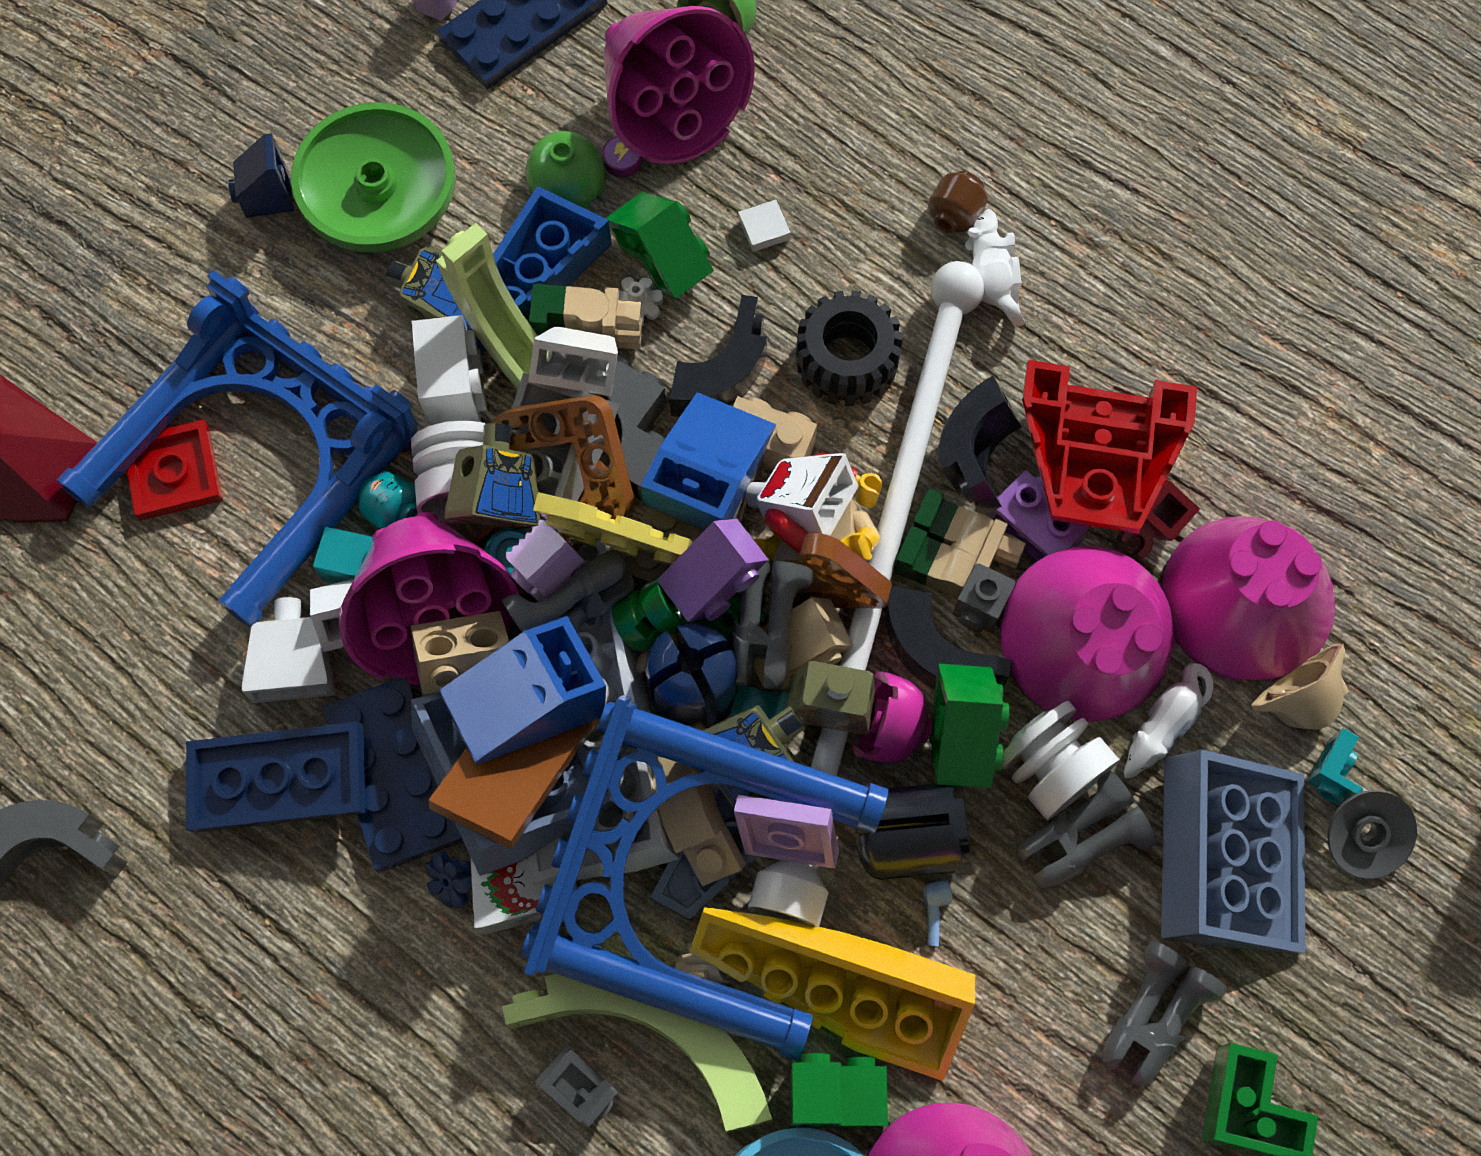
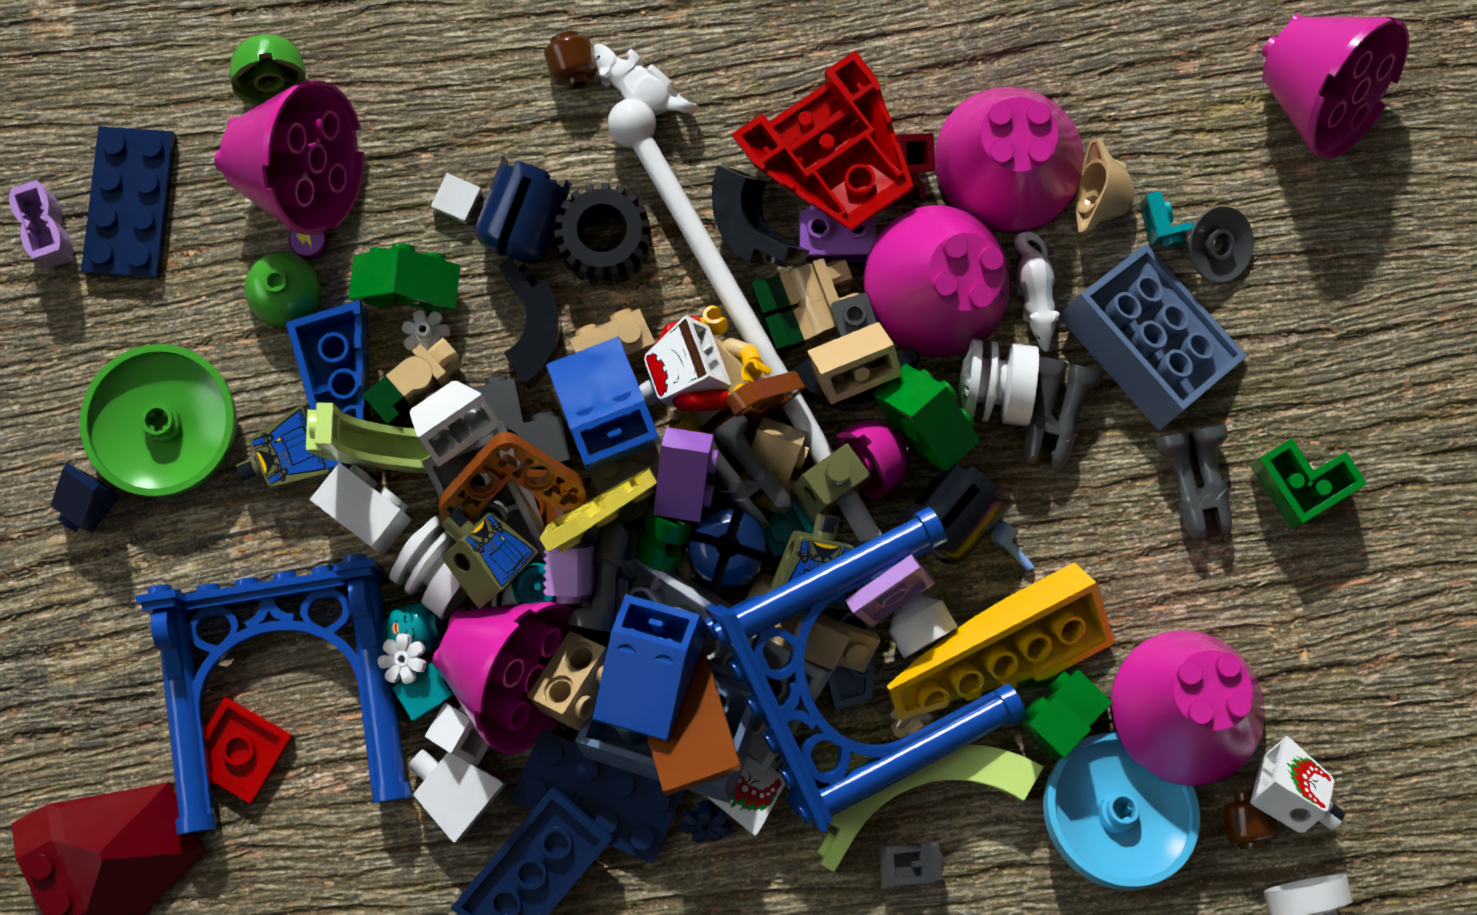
camera: 45 degrees left, 10 degrees up
(355, 512) = (402, 659): none -> white plant
(799, 271) = (520, 212): none -> dark blue cylinder
(947, 622) = (855, 363): none -> tan brick

